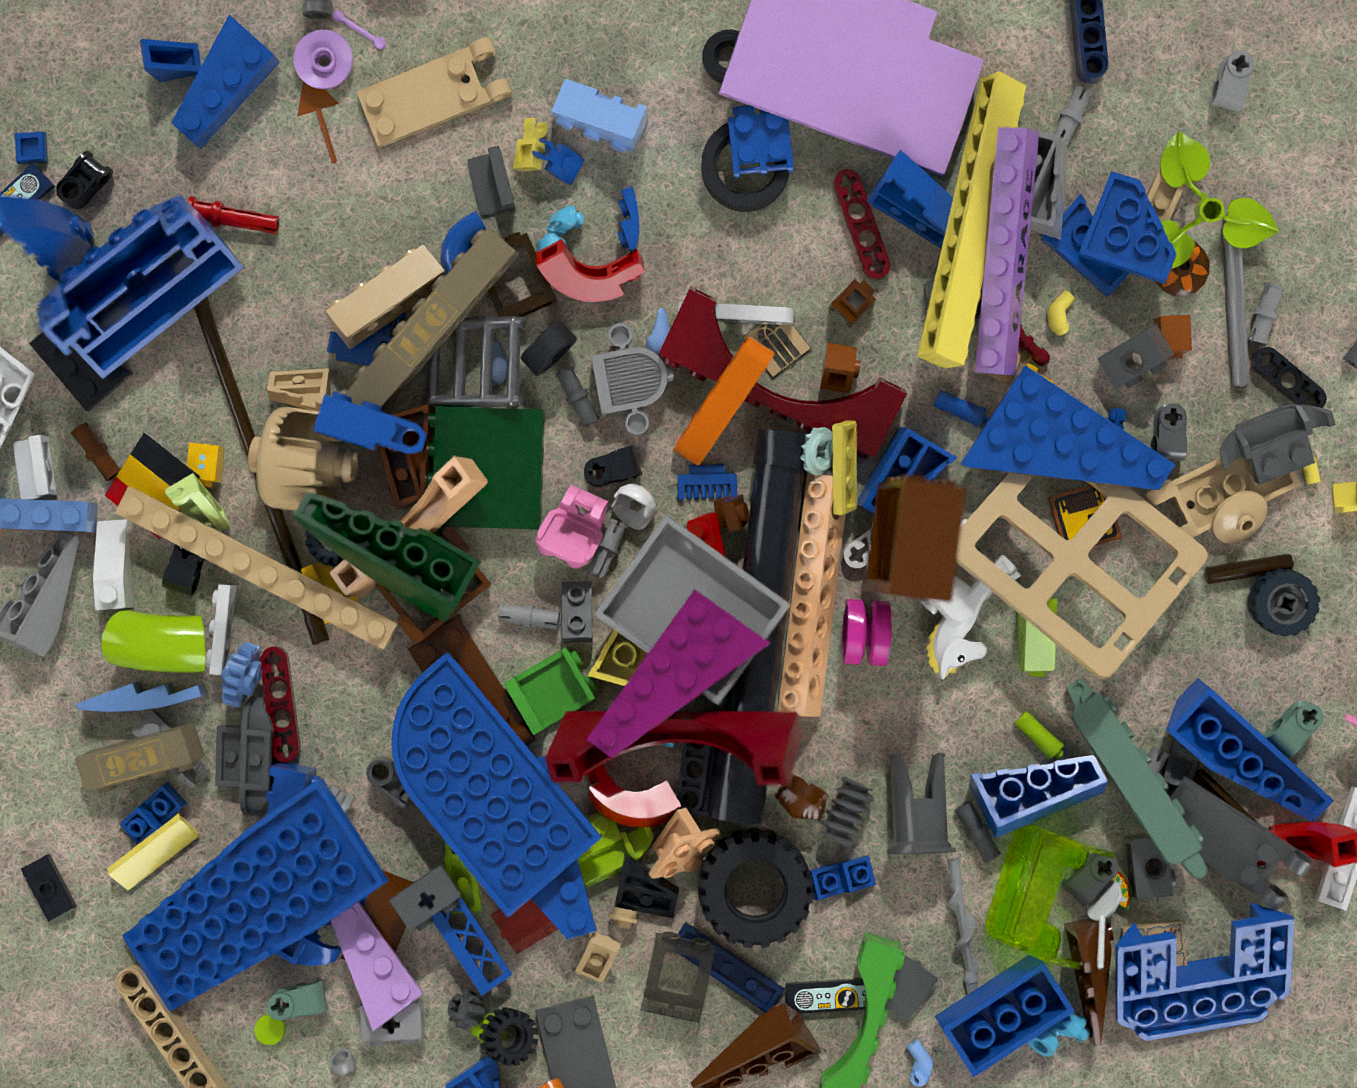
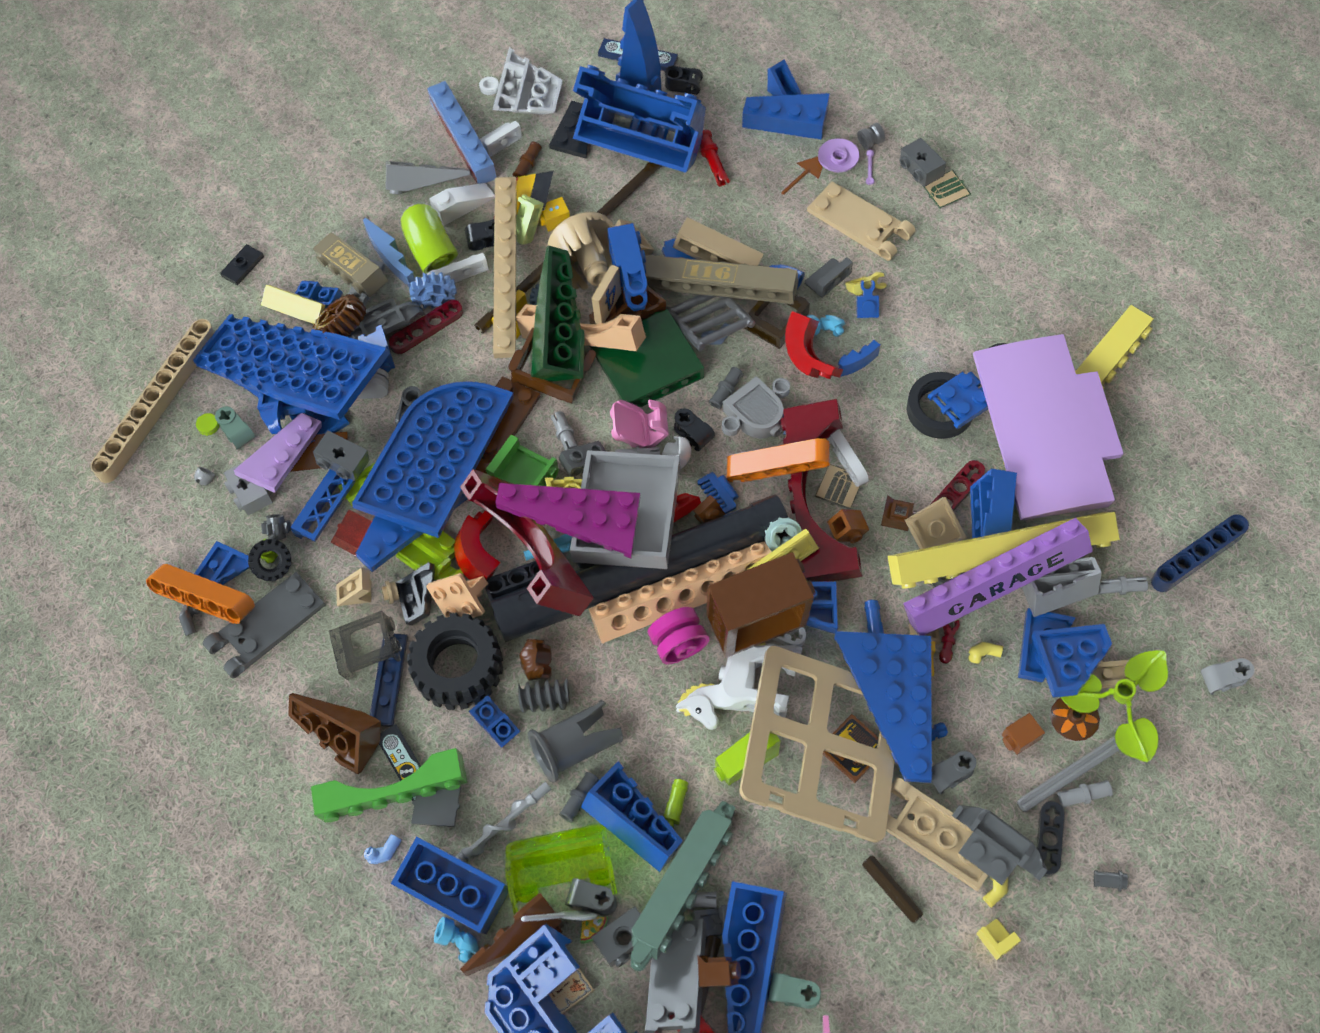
camera: 65 degrees right, 25 degrees down
(31, 147) = (686, 50): blue tile -> none
(219, 808) = (341, 316): none -> reddish brown gear
(393, 476) = (606, 294): none -> tan tile
(548, 348) = (746, 342): black tyre -> none
(599, 116) = (911, 309): light blue wedge -> none
(896, 273) = (935, 525): none -> tan tile
(1148, 345) = (989, 711): dark grey brick -> none
(1239, 517) = (932, 847): tan dish -> none
(1246, 795) = (718, 971): none -> reddish brown window
(1267, 597) = (887, 942): black wheel -> none

